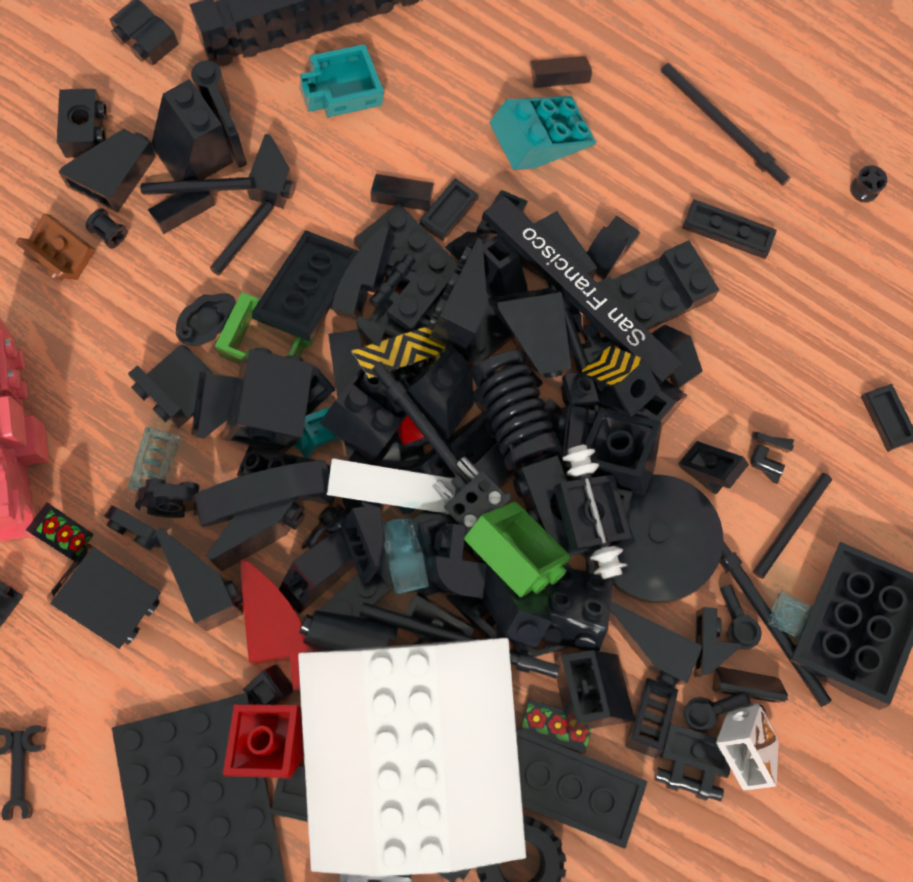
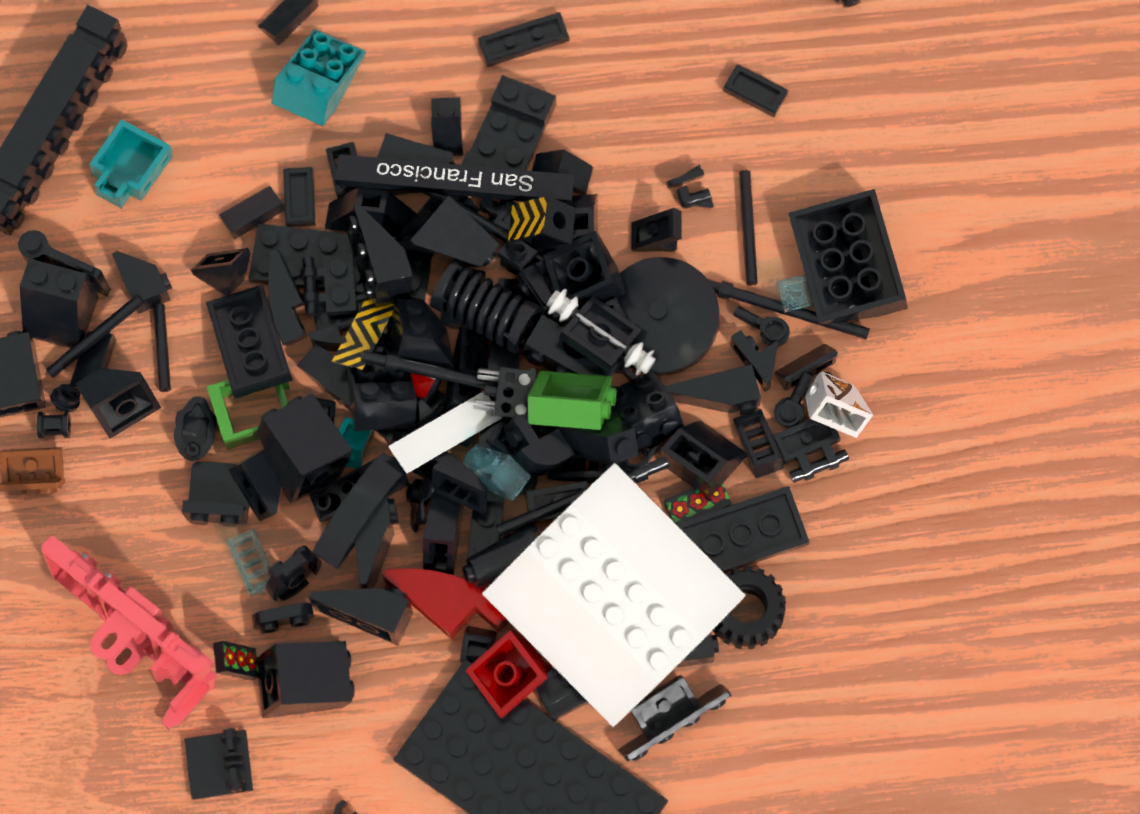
camera: 30 degrees left, 0 degrees up
(138, 211) = (66, 398): none -> black plate
(165, 245) = (118, 398): none -> black slope
(339, 216) = (223, 269): none -> black slope

